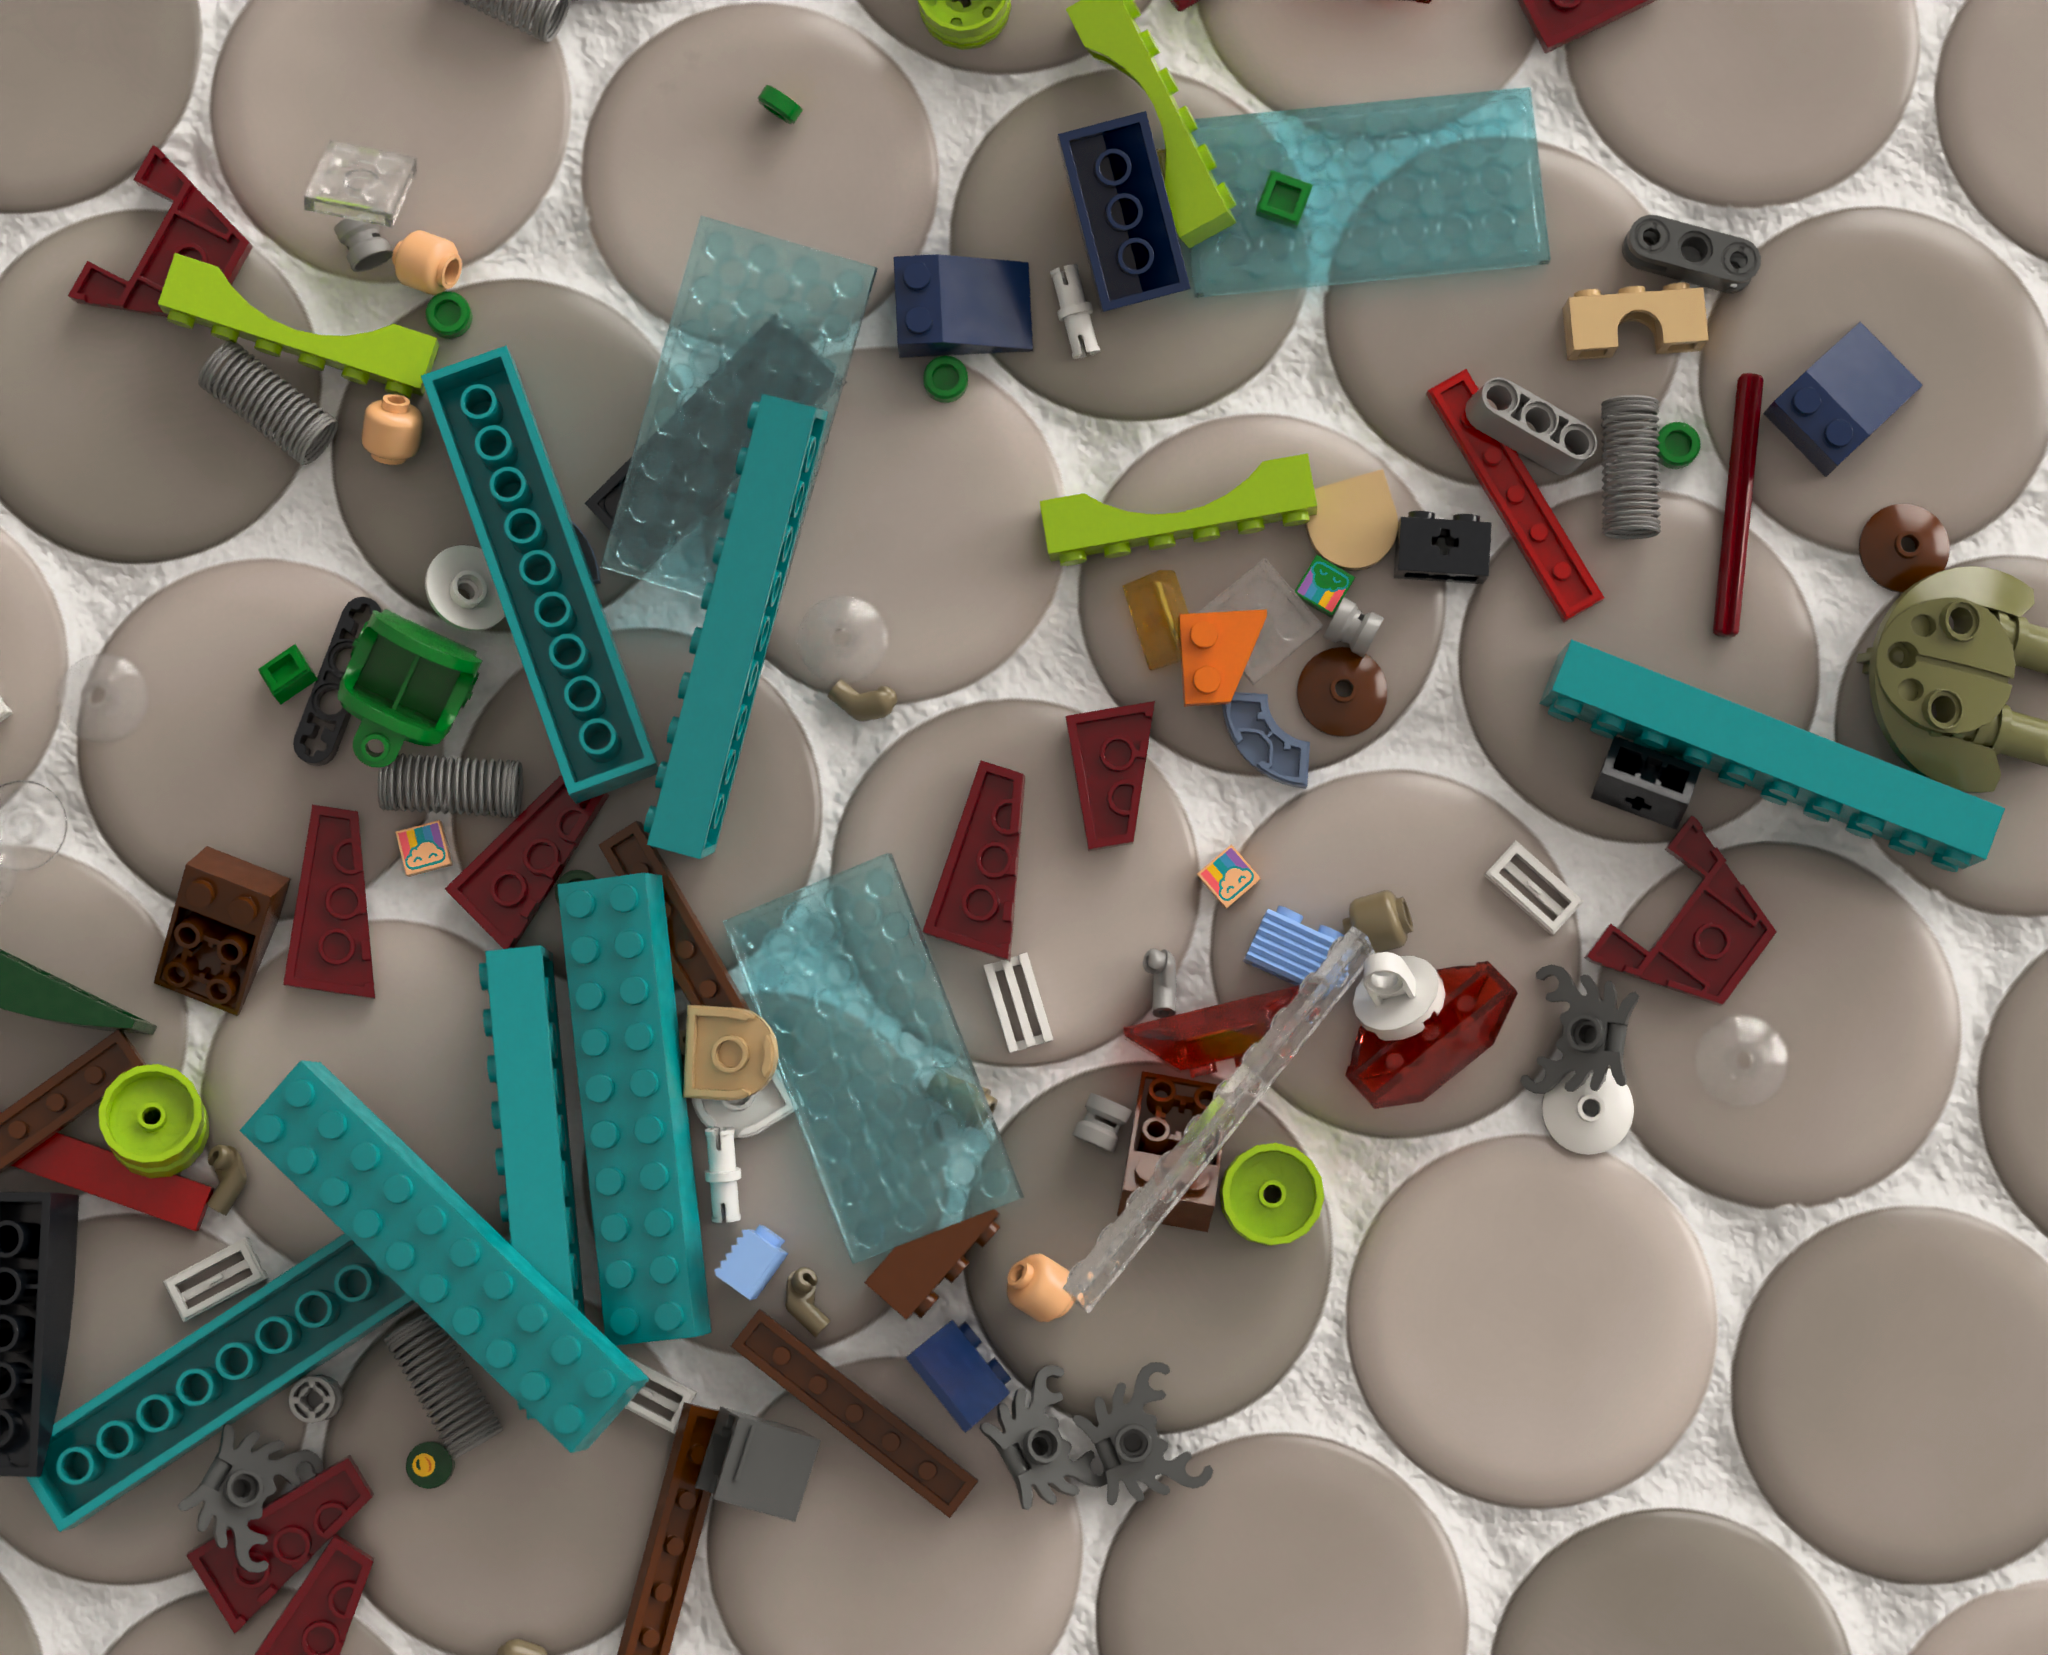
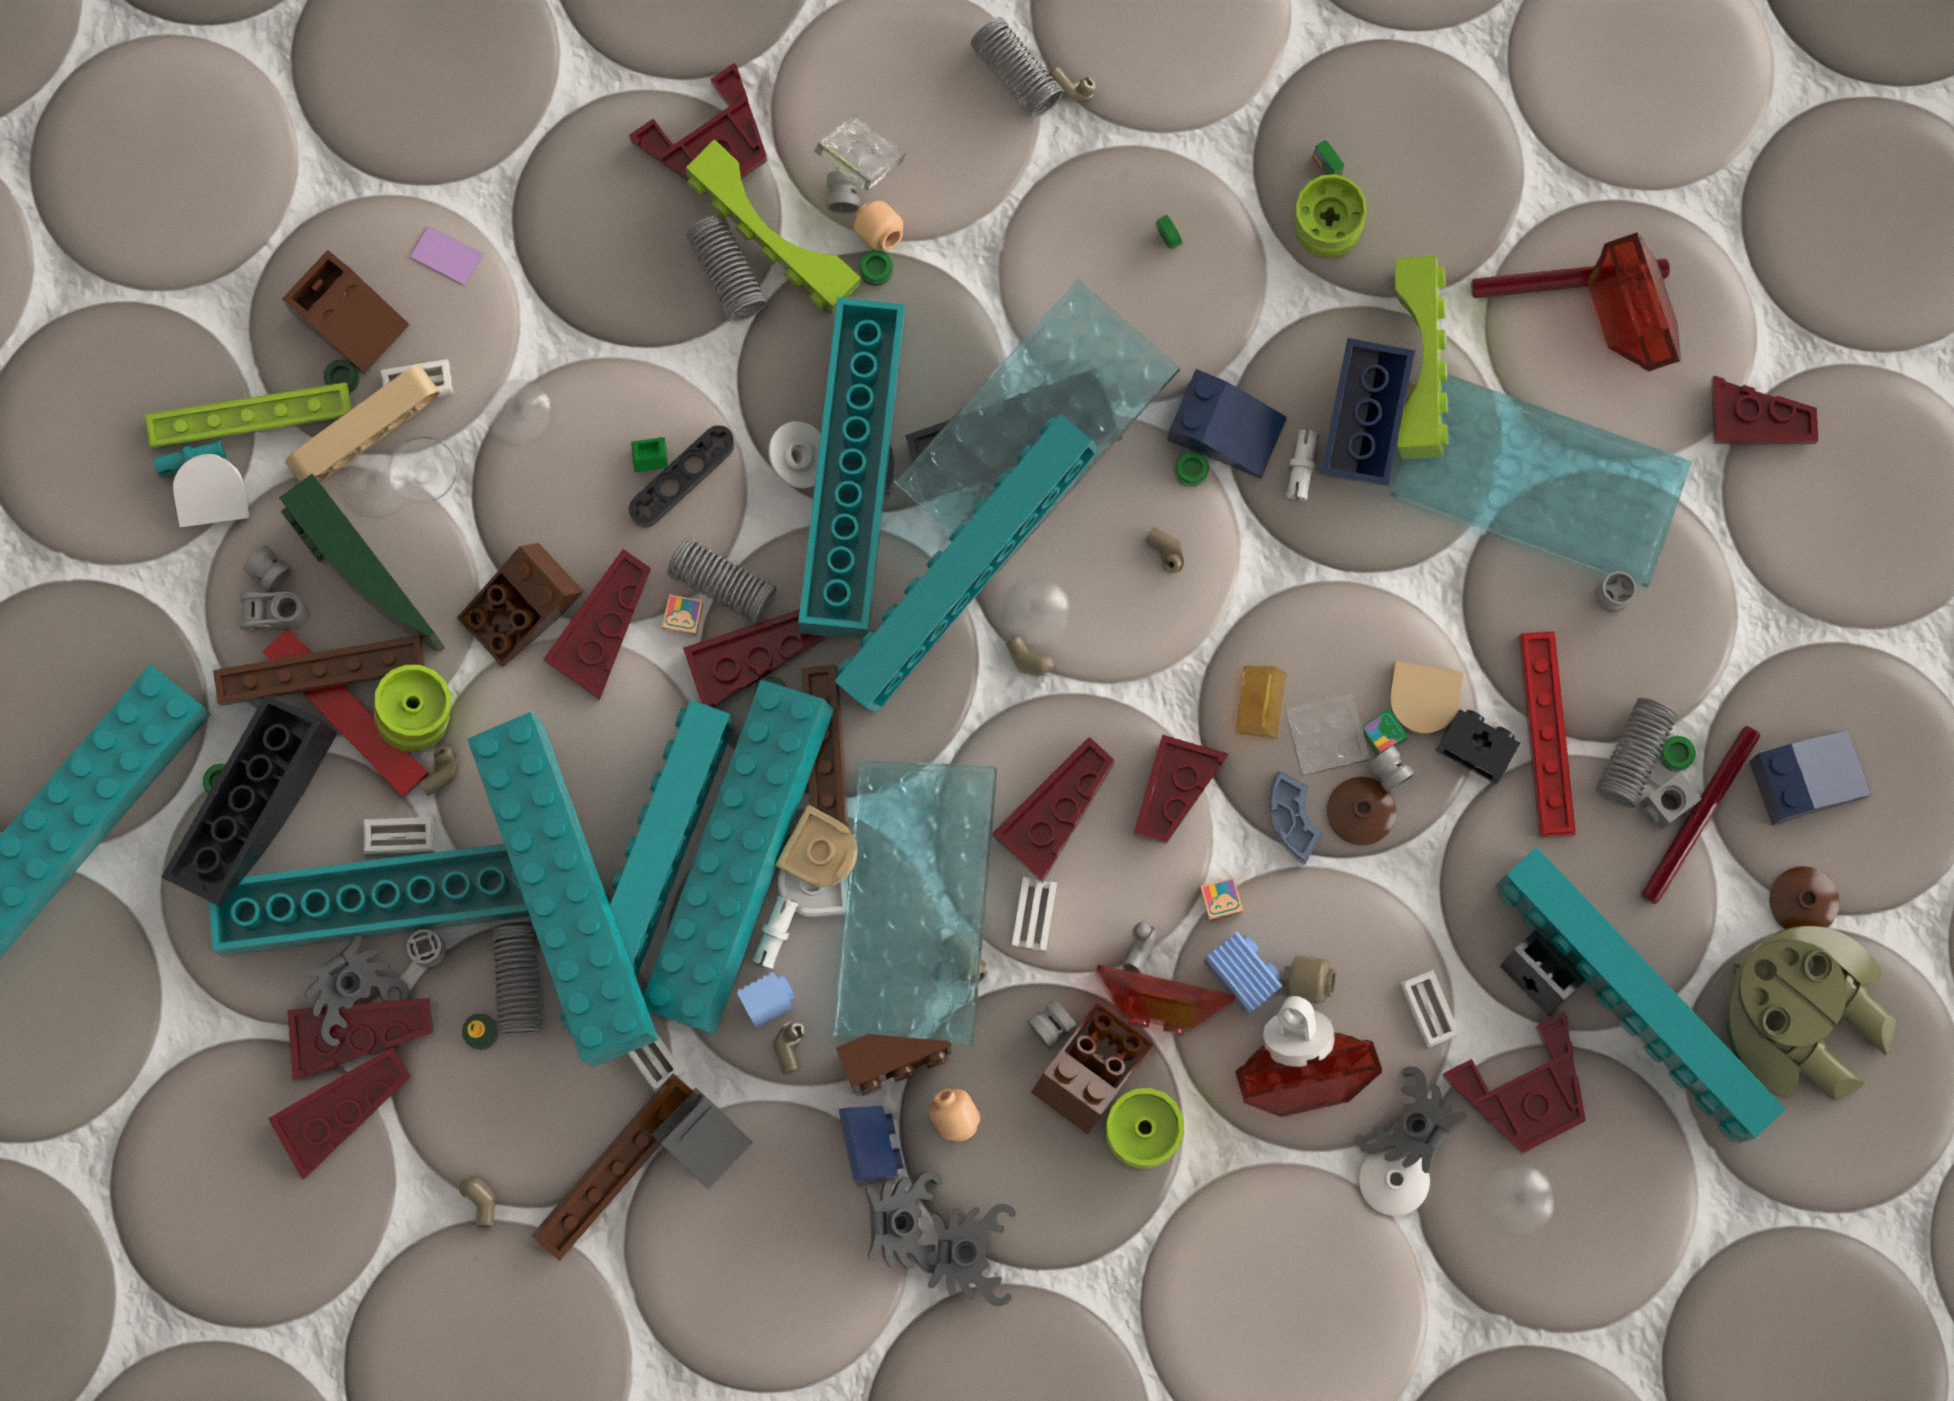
camera: 25 degrees right, 5 degrees down
(392, 429) = (800, 325): light nougat head -> none
(404, 685) = (724, 498): green animal -> none
(854, 1413) = (785, 1138): reddish brown plate -> none
(967, 488) = (1170, 549): none -> dark tan arm
(1210, 1130) = (1132, 1057): clear plate -> none
(1216, 653) = (1286, 741): orange wing -> none
(1272, 493) = (1376, 651): lime arch -> none
(1283, 199) = (1483, 456): green tile -> none
(1521, 279) = (1620, 585): none -> light grey wheel
(1551, 425) = (1595, 696): light grey beam -> none
(1672, 315) = (1716, 661): tan arch -> none
(1709, 492) = (1680, 790): none -> light grey brick
(1715, 248) = (1769, 631): dark grey piece -> none

